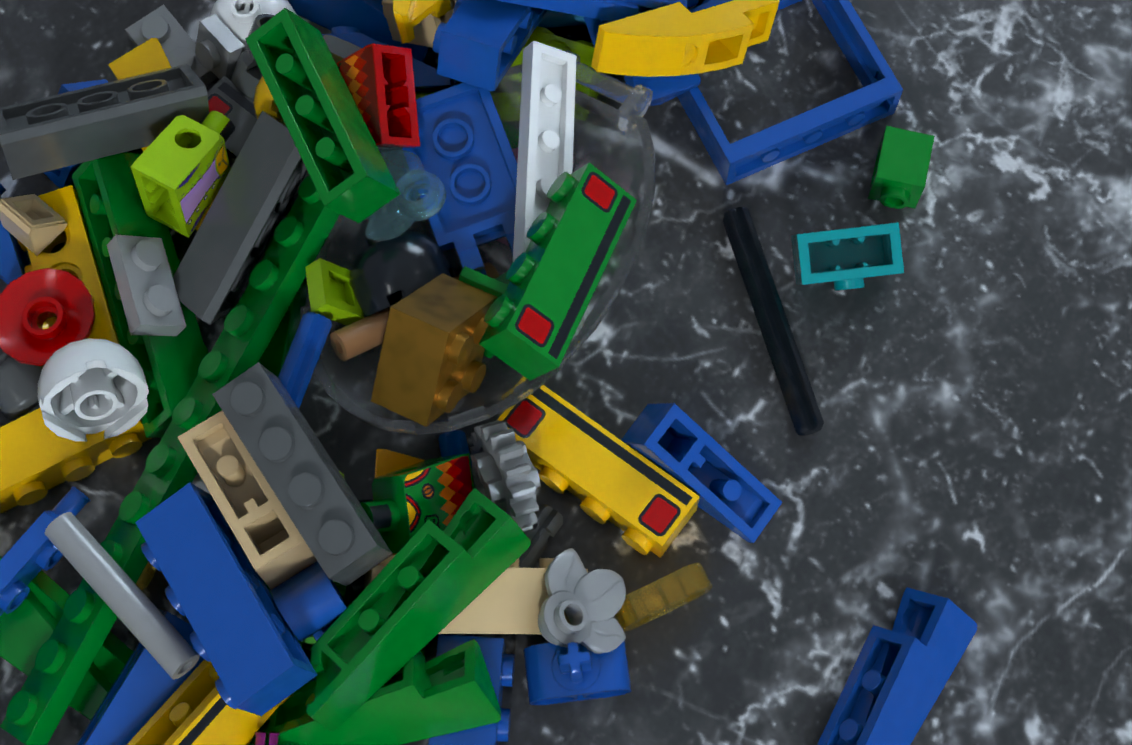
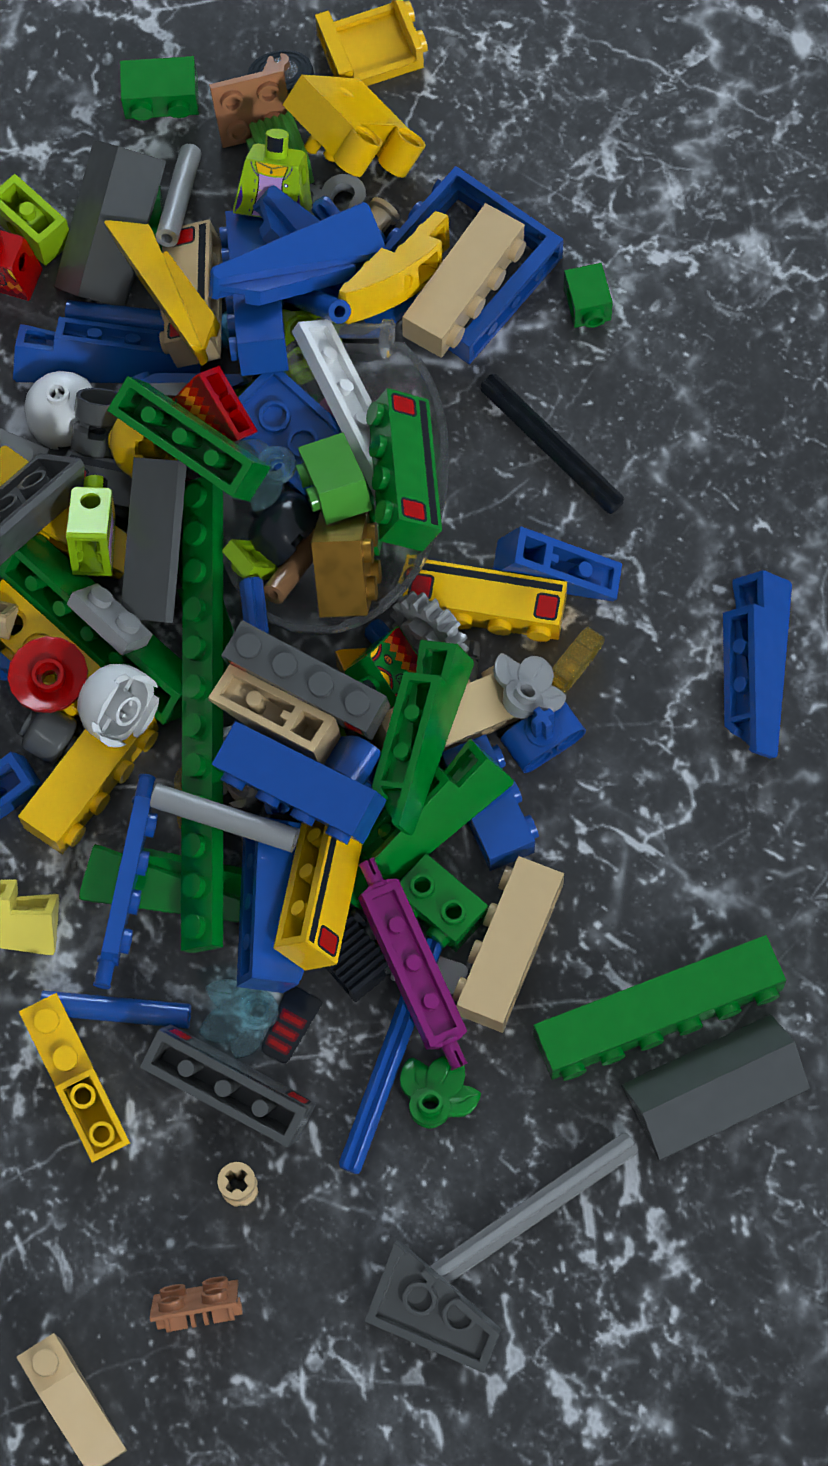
camera: 25 degrees left, 0 degrees up
(217, 47) = (50, 432): light grey plate -> none
(468, 243) = (333, 478): none -> bright green brick
(577, 37) = (321, 305): none -> blue piece
(761, 84) = (464, 280): none -> tan brick
(847, 255) = (582, 374): teal brick -> none

